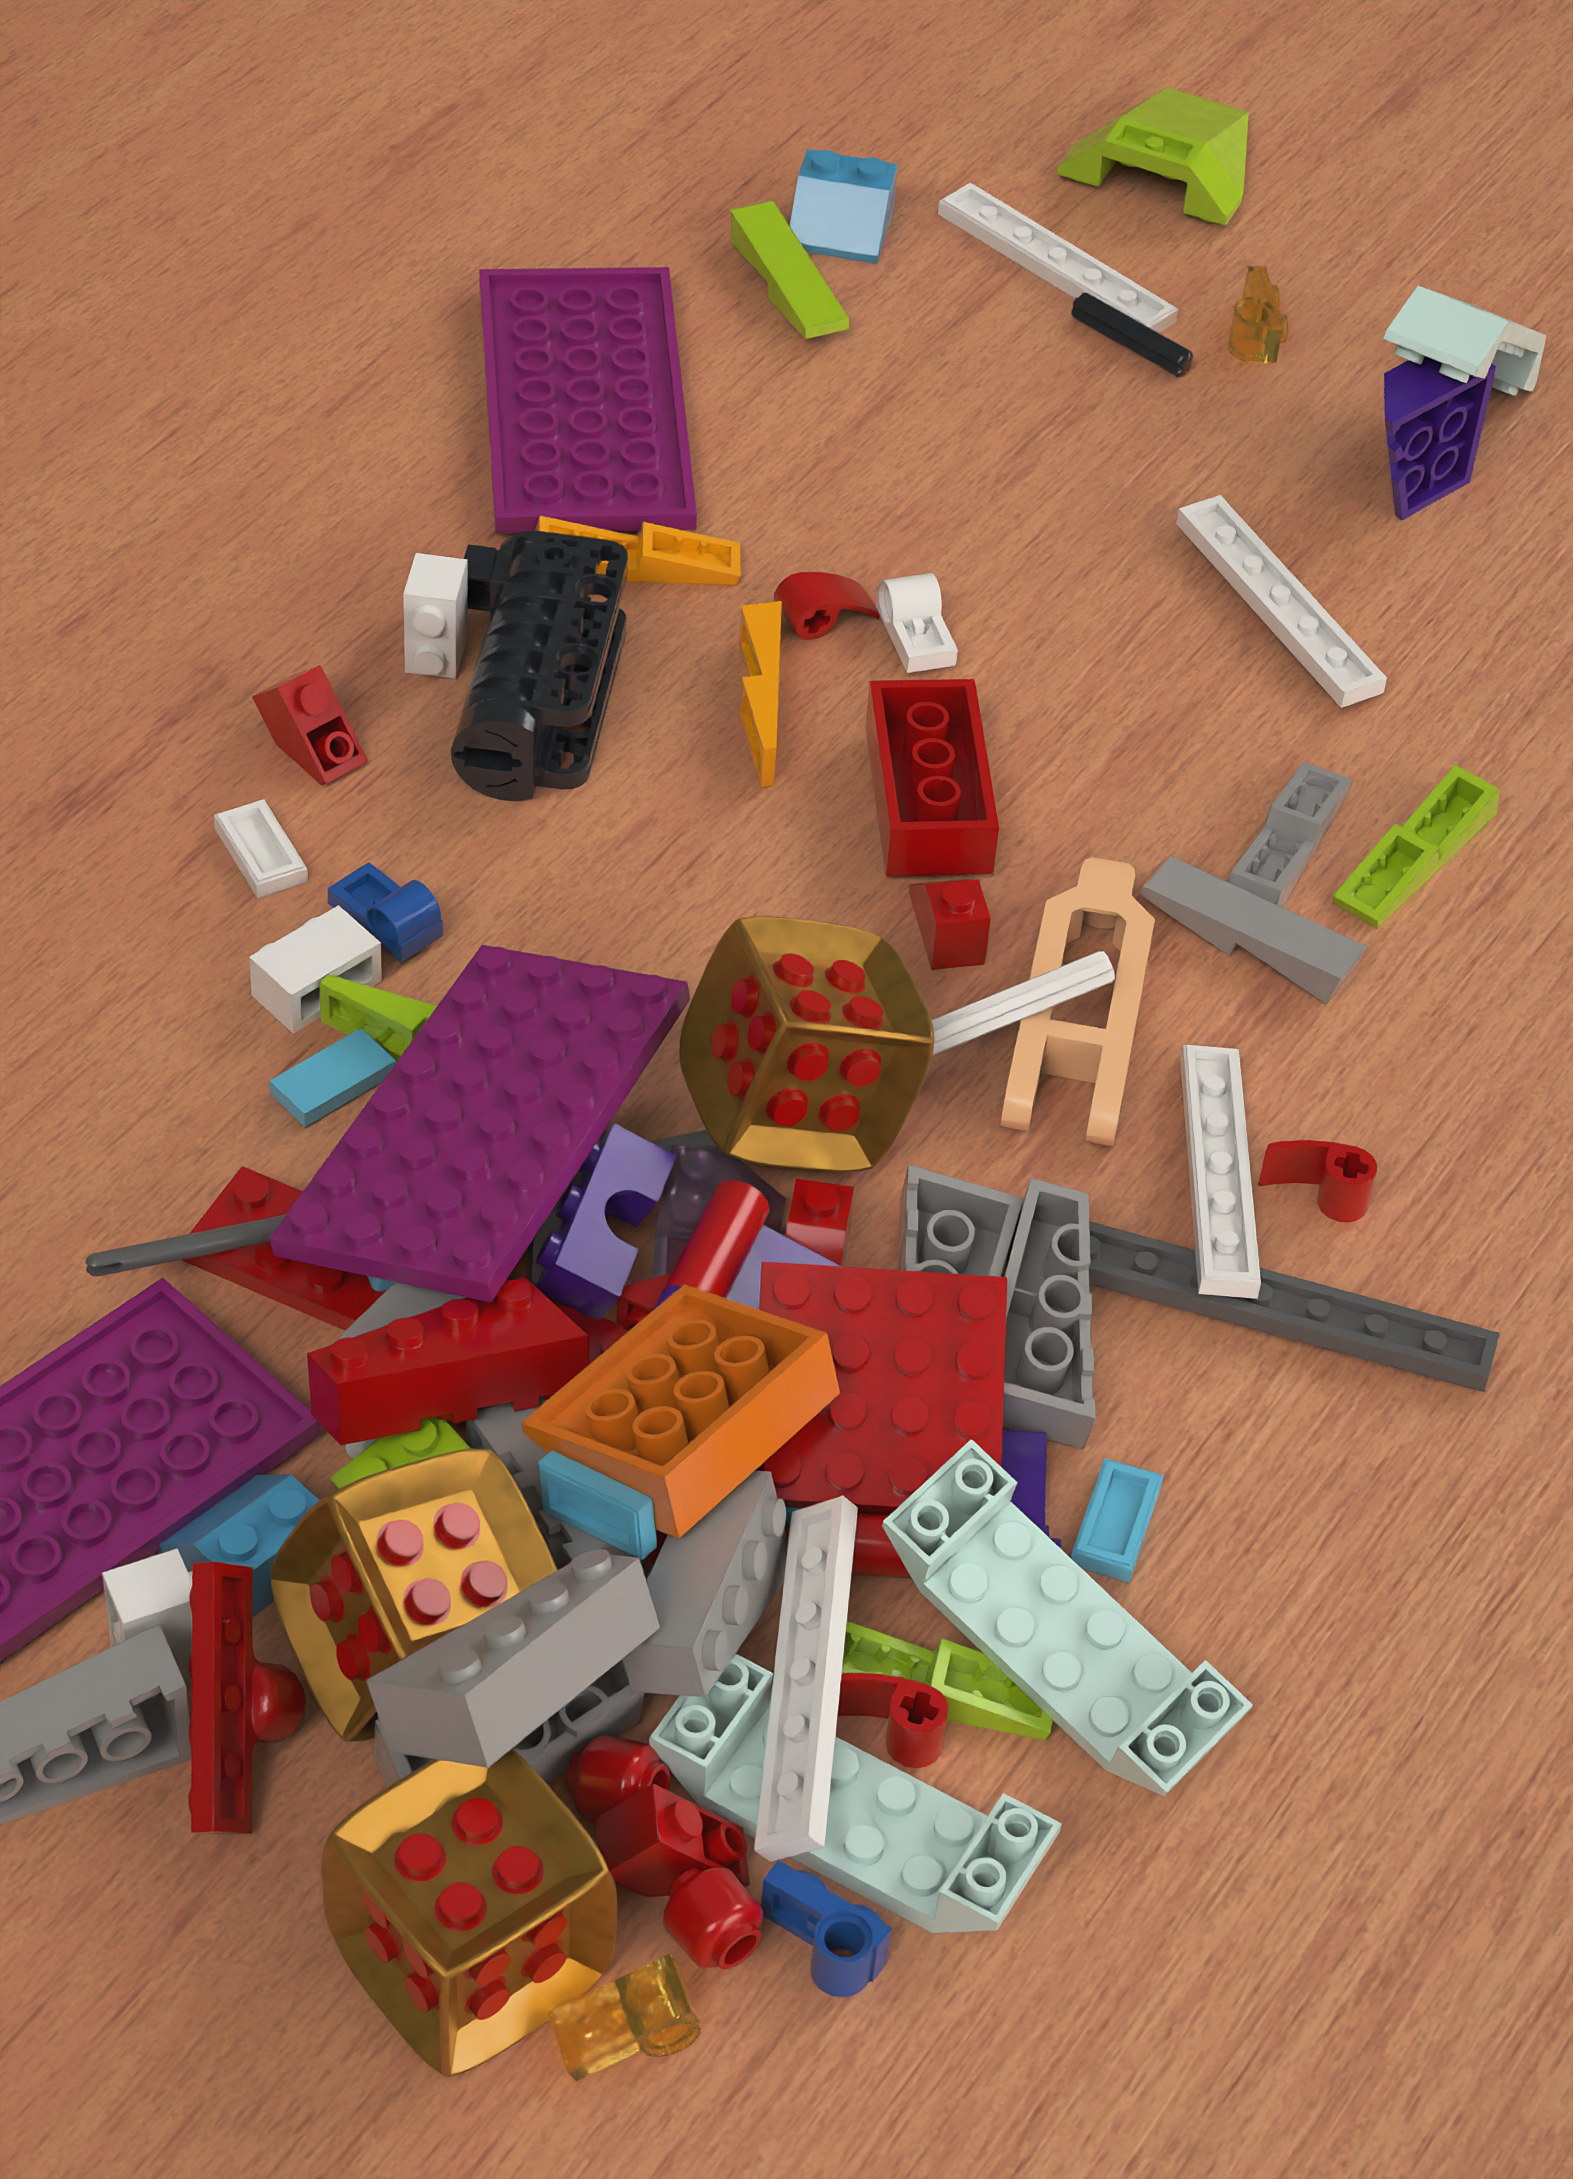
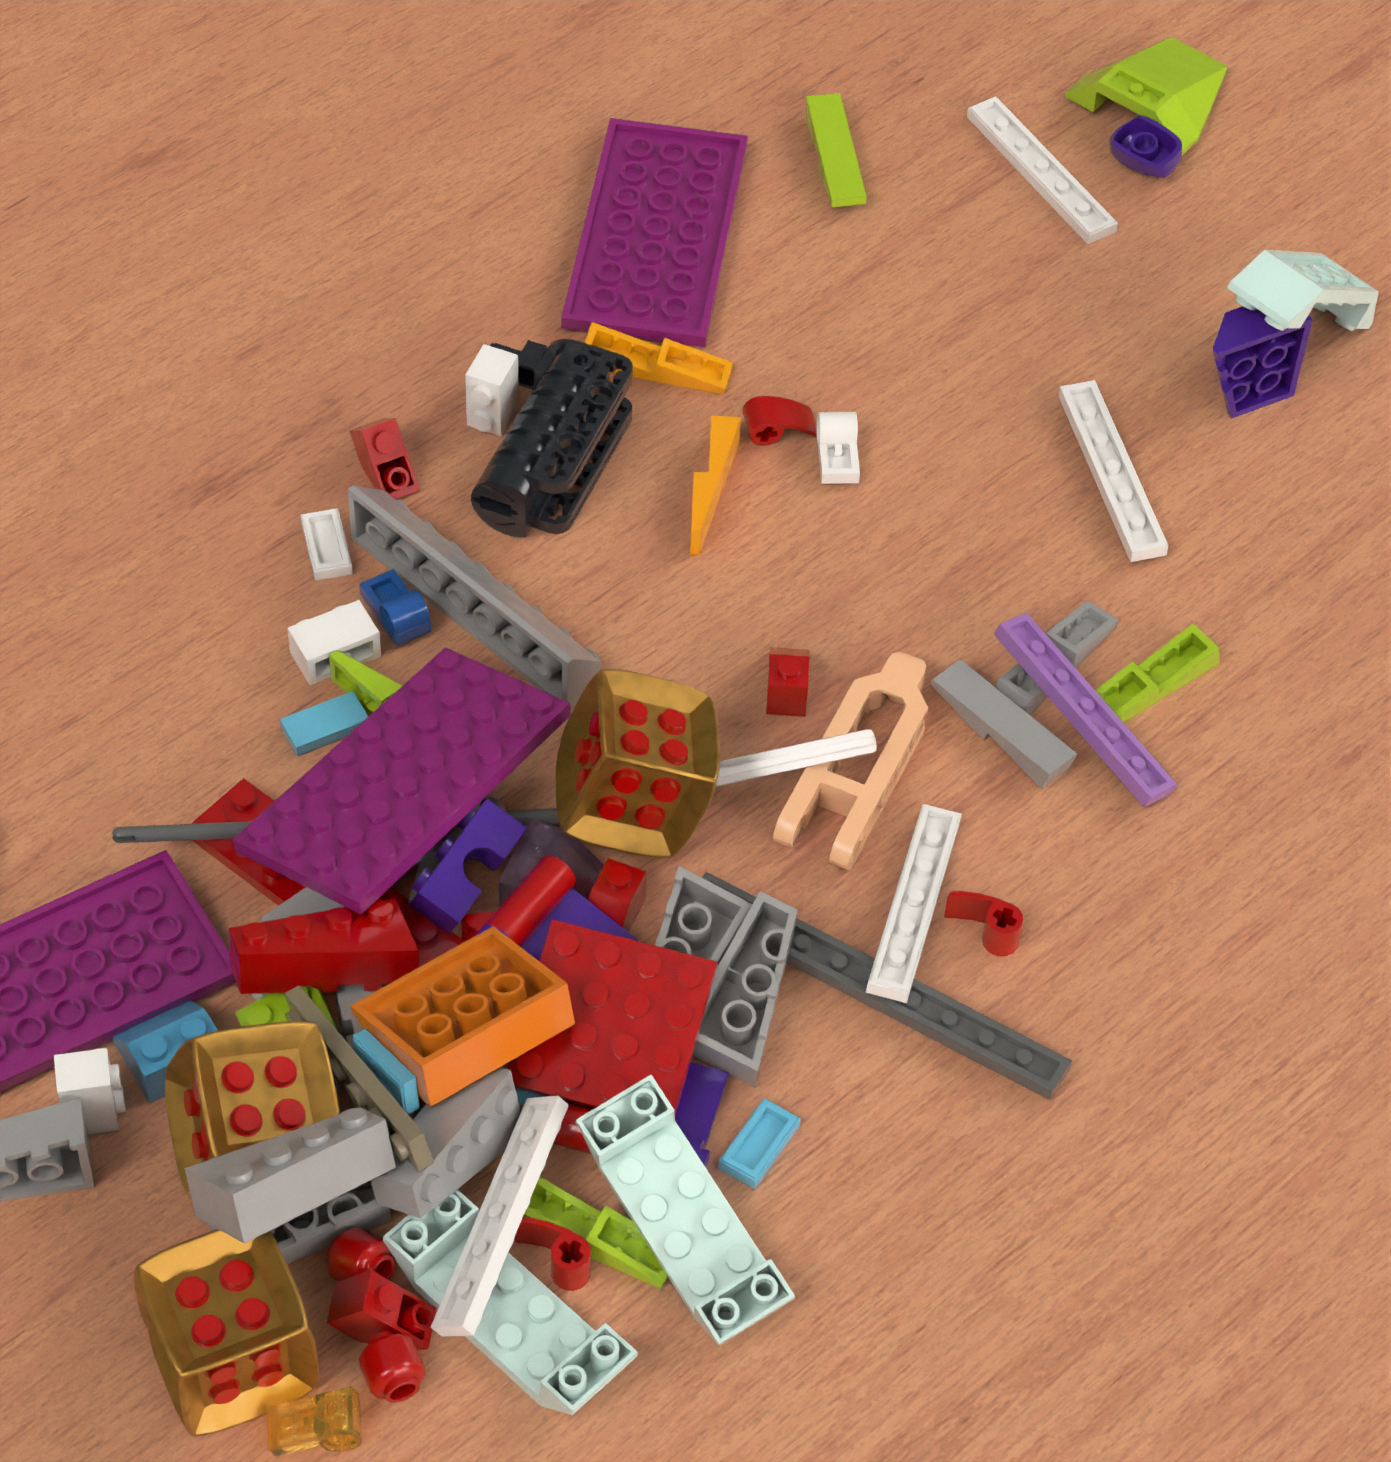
camera: 15 degrees right, 5 degrees up
(232, 1699) = (118, 1156): red plate -> none
(482, 876) = (470, 595): none -> light grey slope
(580, 1527) = (362, 1085): none -> dark tan plate
(827, 1922) = (467, 1387): blue plate -> none
(843, 205) = (892, 103): slope -> none
(931, 777) = (805, 570): red brick -> none
(1132, 334) = (1077, 238): black axle -> none
(1185, 214) = (1146, 147): none -> dark purple piece
(1256, 320) = (1170, 241): clear yellow plate -> none
(1357, 891) = (1085, 709): none -> medium lavender plate

